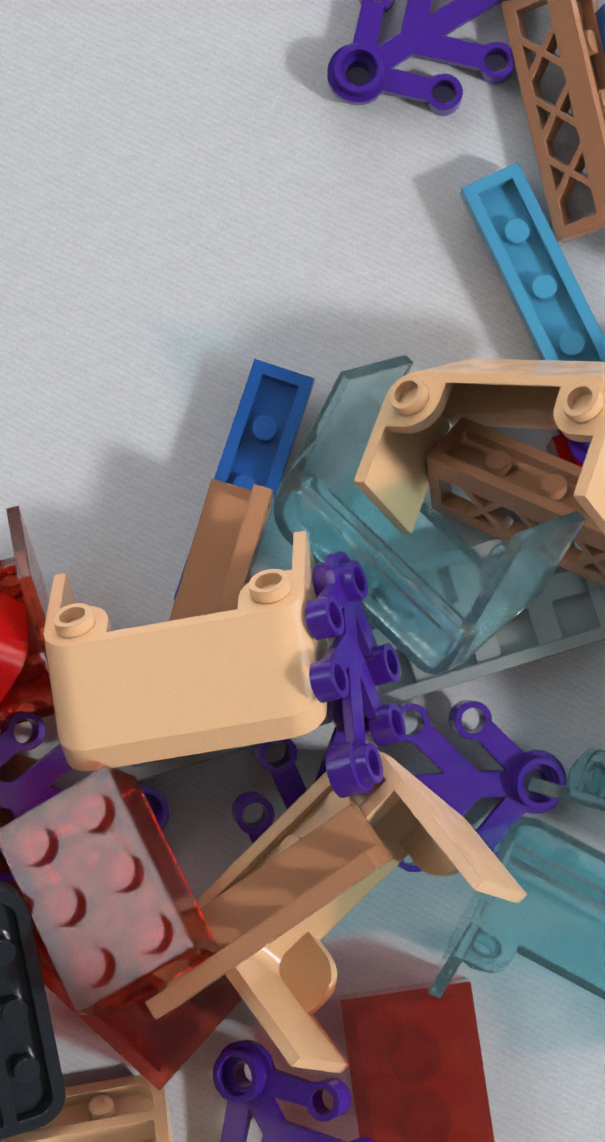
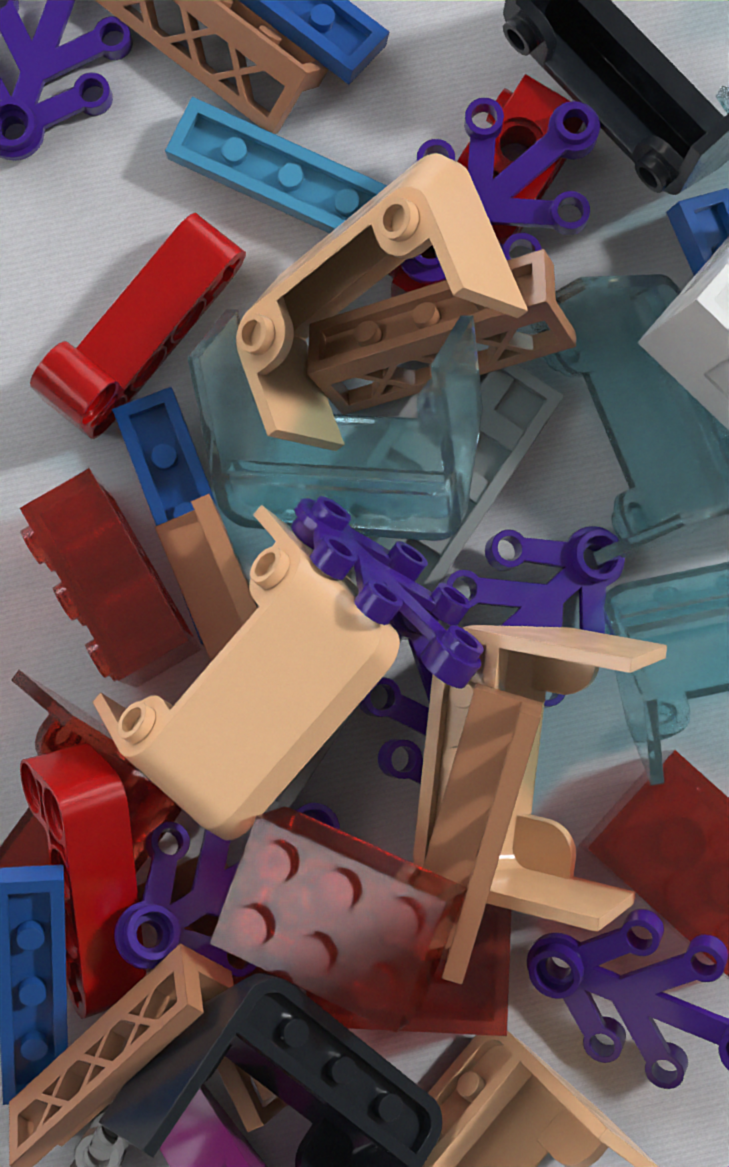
camera: 35 degrees left, 0 degrees up
(141, 492) = (107, 581): none -> clear red brick
(329, 311) = (138, 327): none -> red beam

